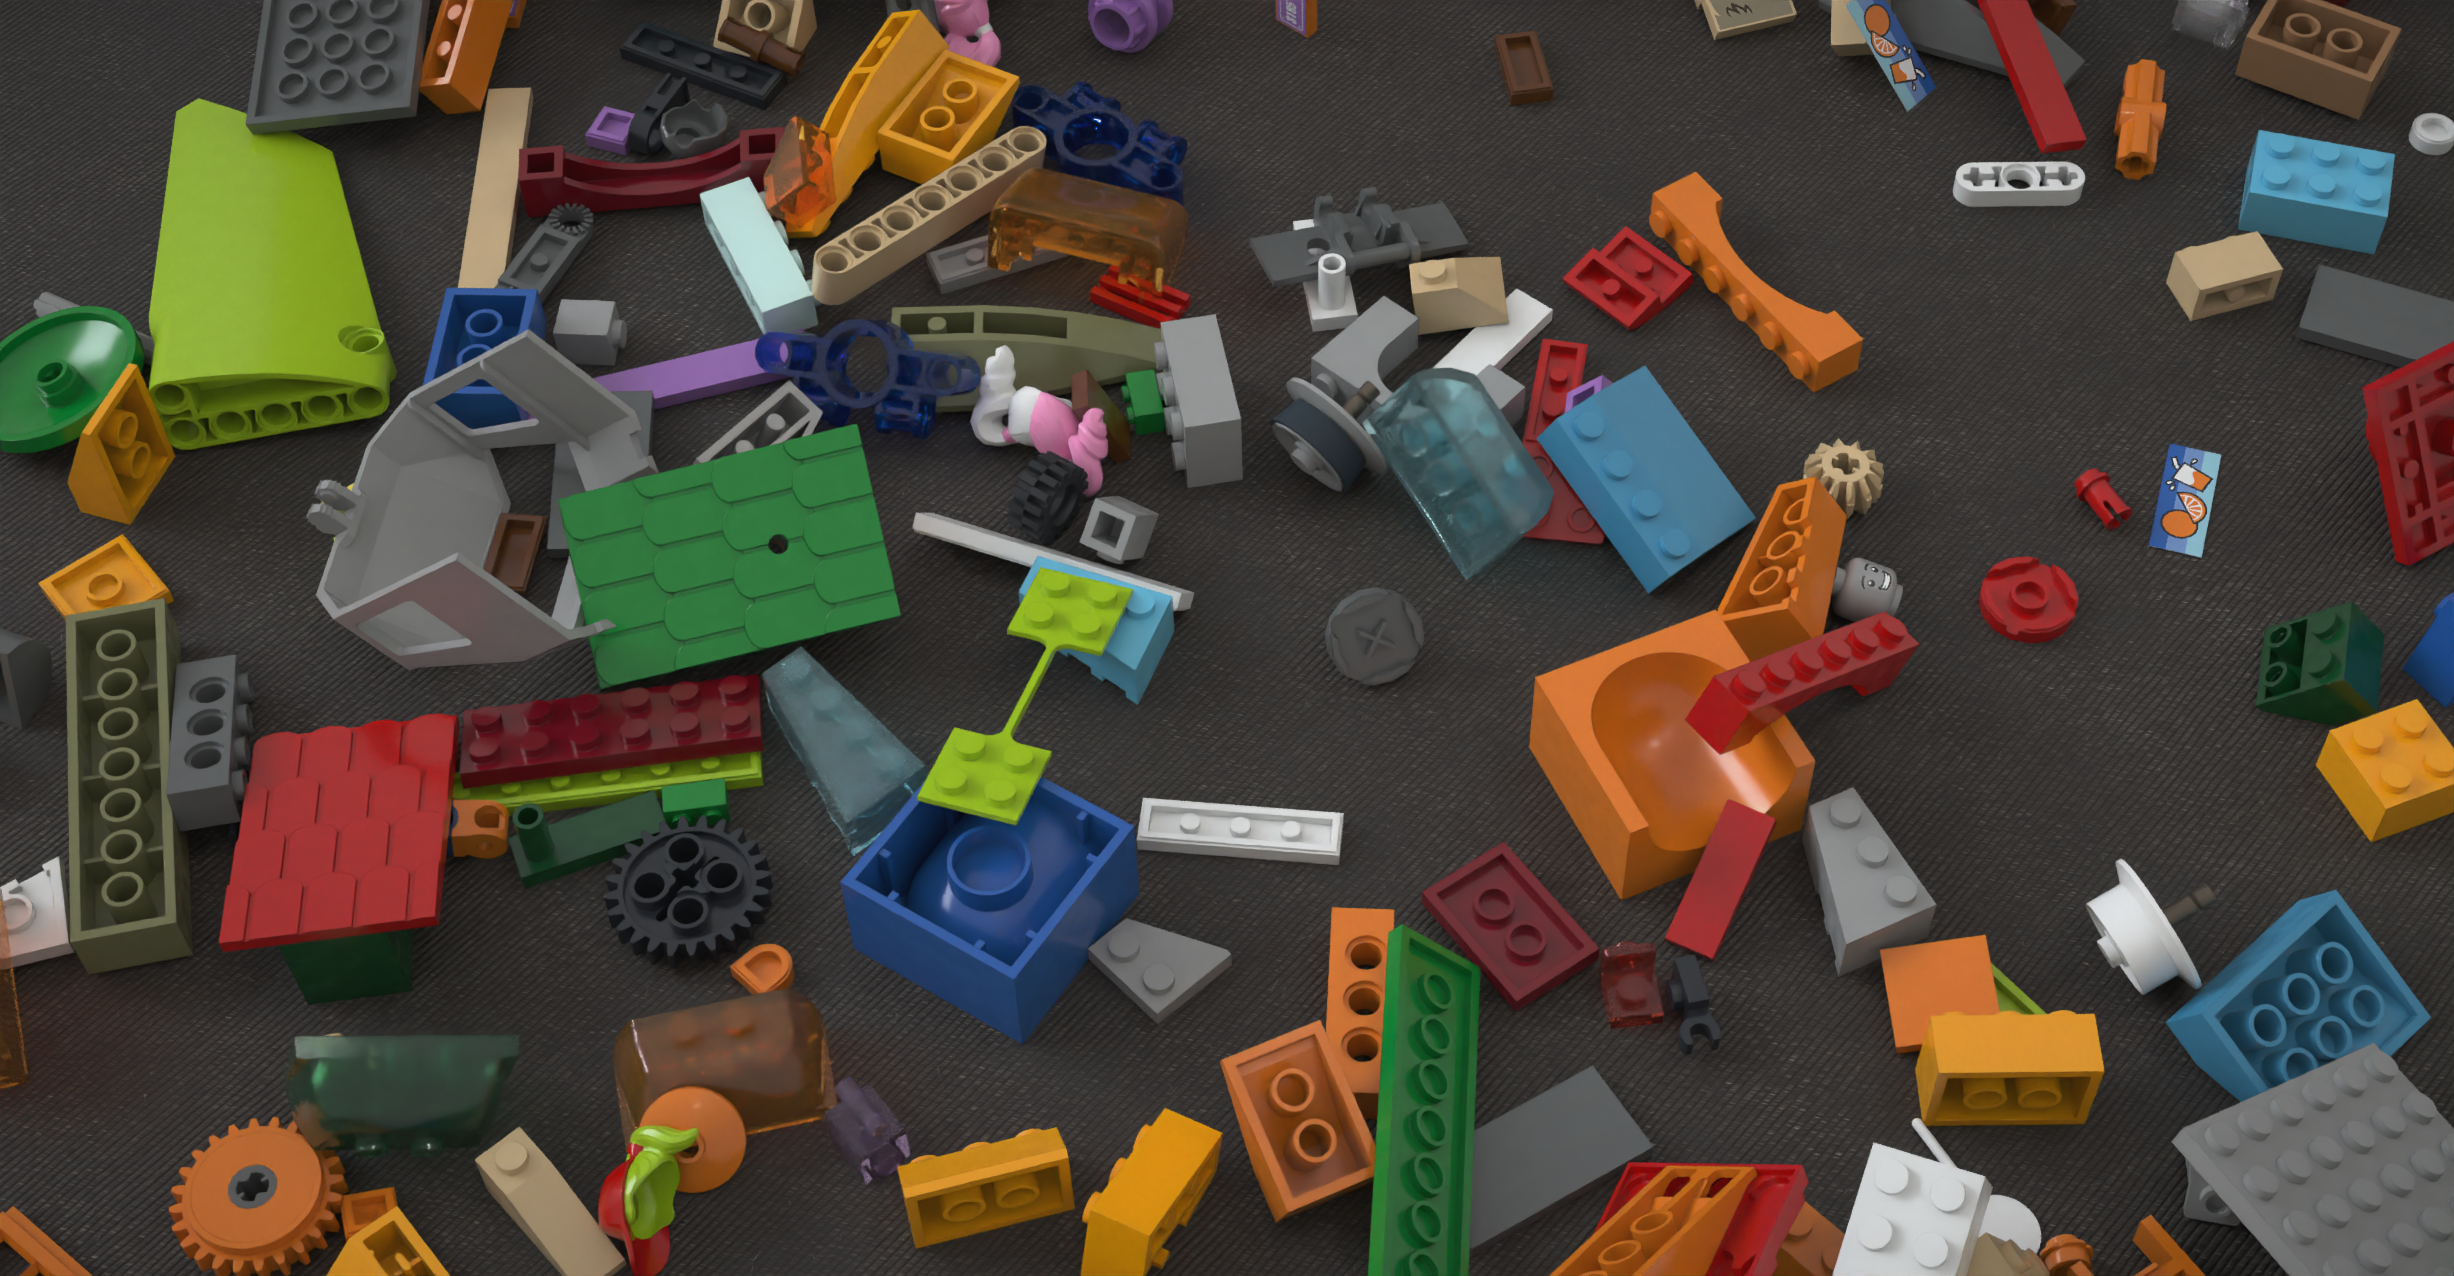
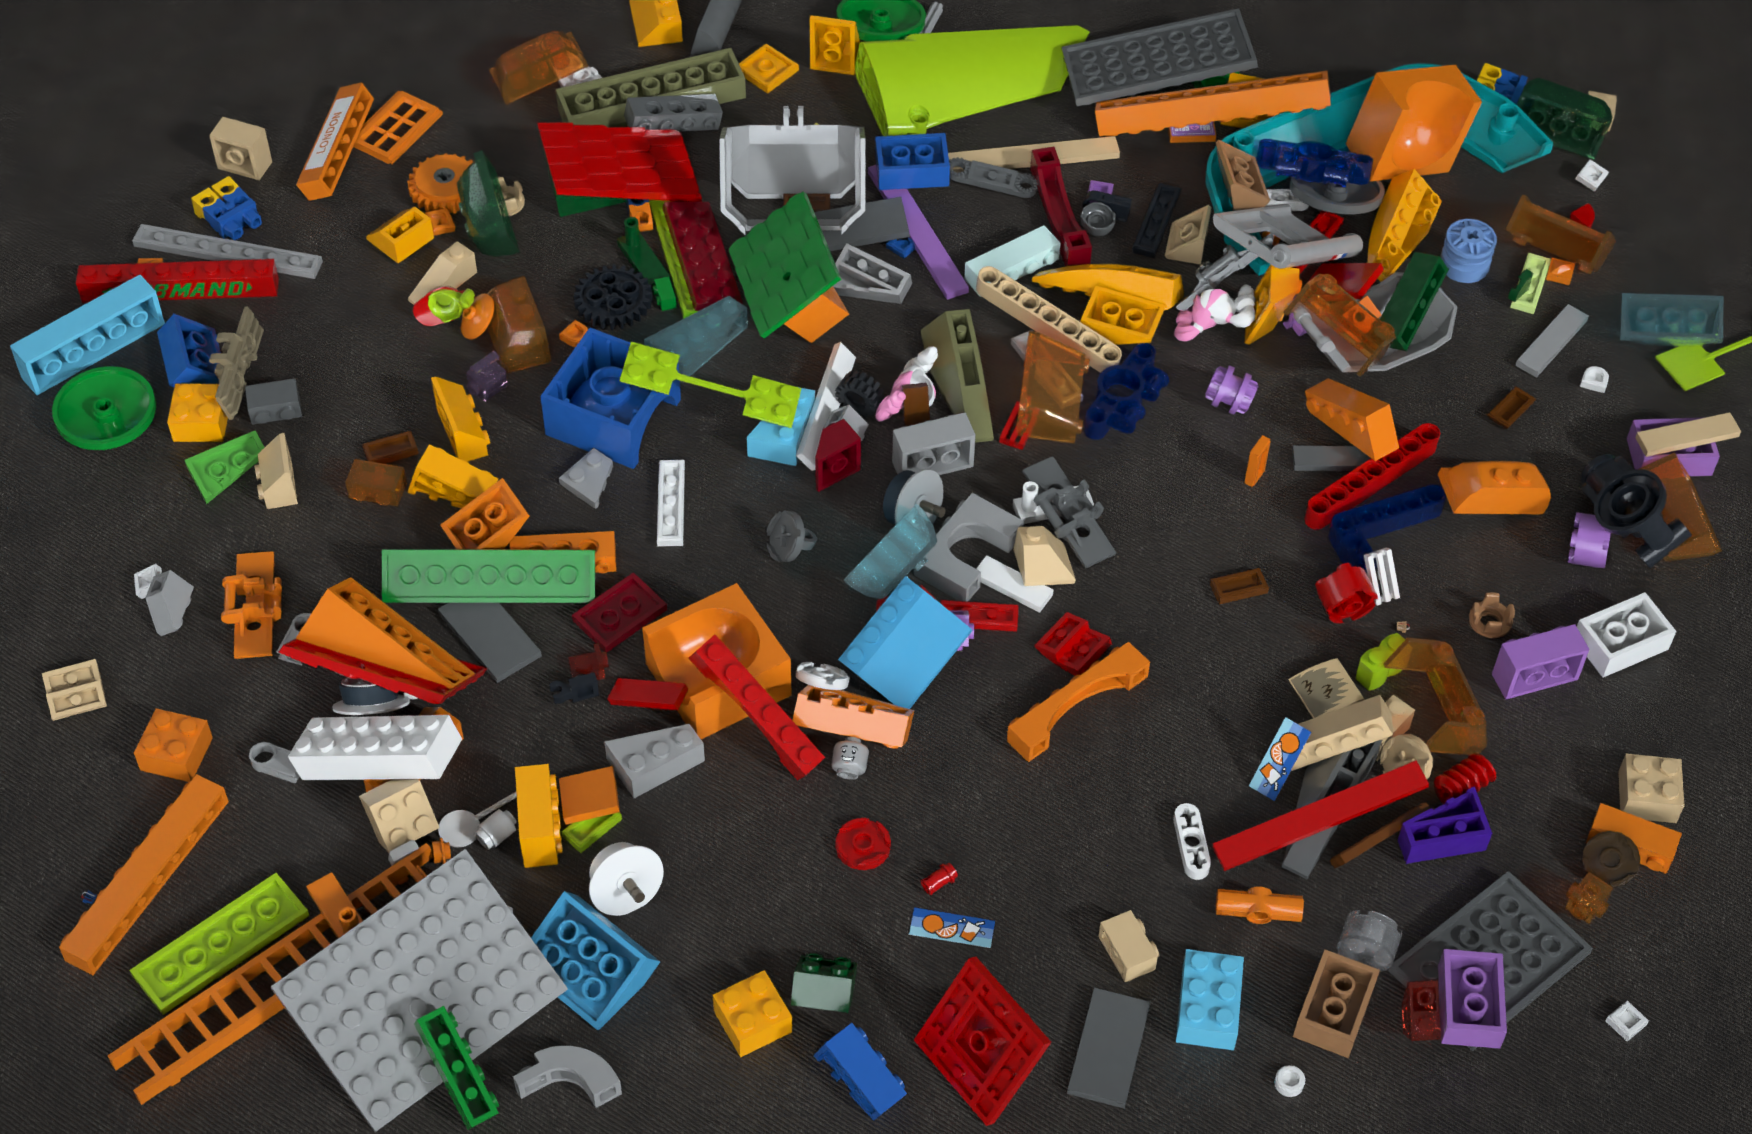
camera: 80 degrees right, 0 degrees up
(589, 331) = (950, 203): light grey brick -> none
(668, 422) = (901, 247): none -> blue tile
(761, 46) = (1166, 237): reddish brown pin -> none
(800, 174) = (1060, 258): clear orange slope -> none
(910, 388) = (926, 307): clear blue piece -> none
(1192, 543) = (837, 454): none -> dark red slope
(1710, 592) = (822, 677): none -> white tile
(1847, 474) = (932, 747): tan gear -> none
(2016, 1157) = (495, 829): none -> white brick

